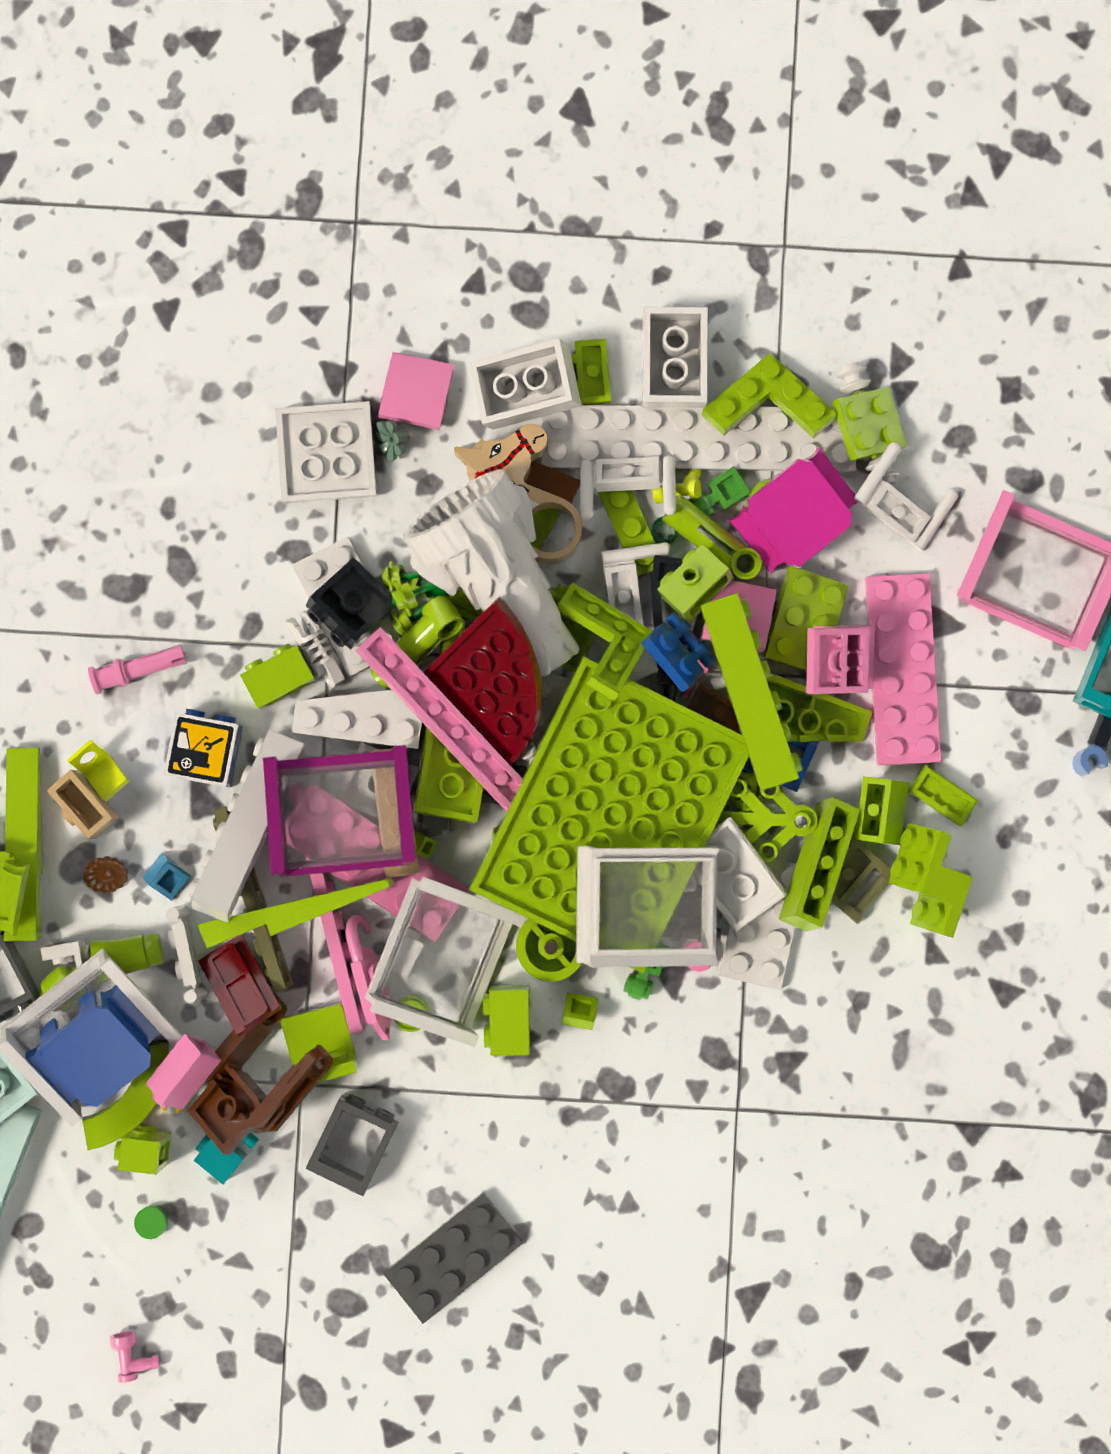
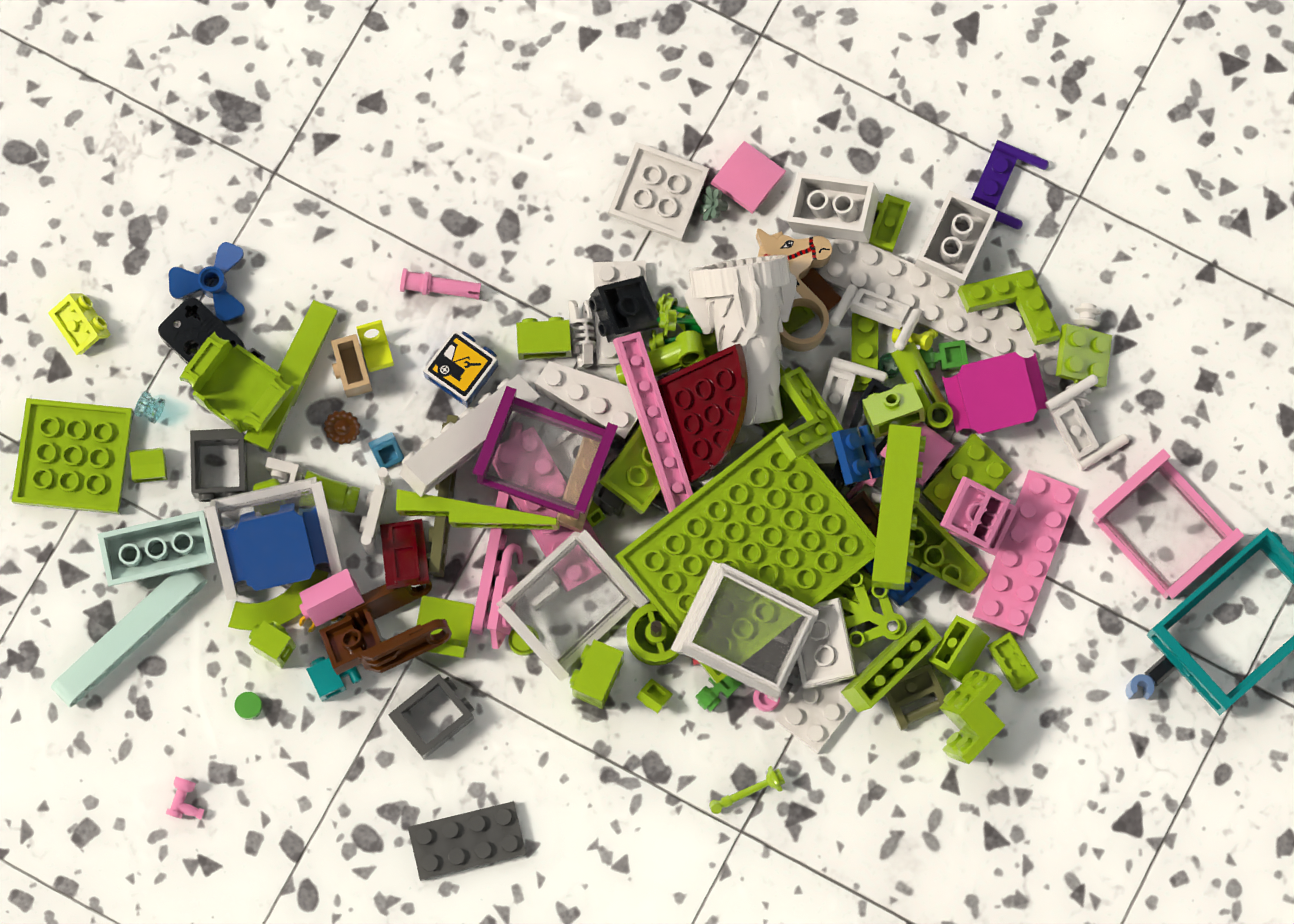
camera: 25 degrees right, 10 degrees down
(685, 264) = (997, 175): none -> dark purple plate
(748, 1041) = (773, 779): none -> lime piece

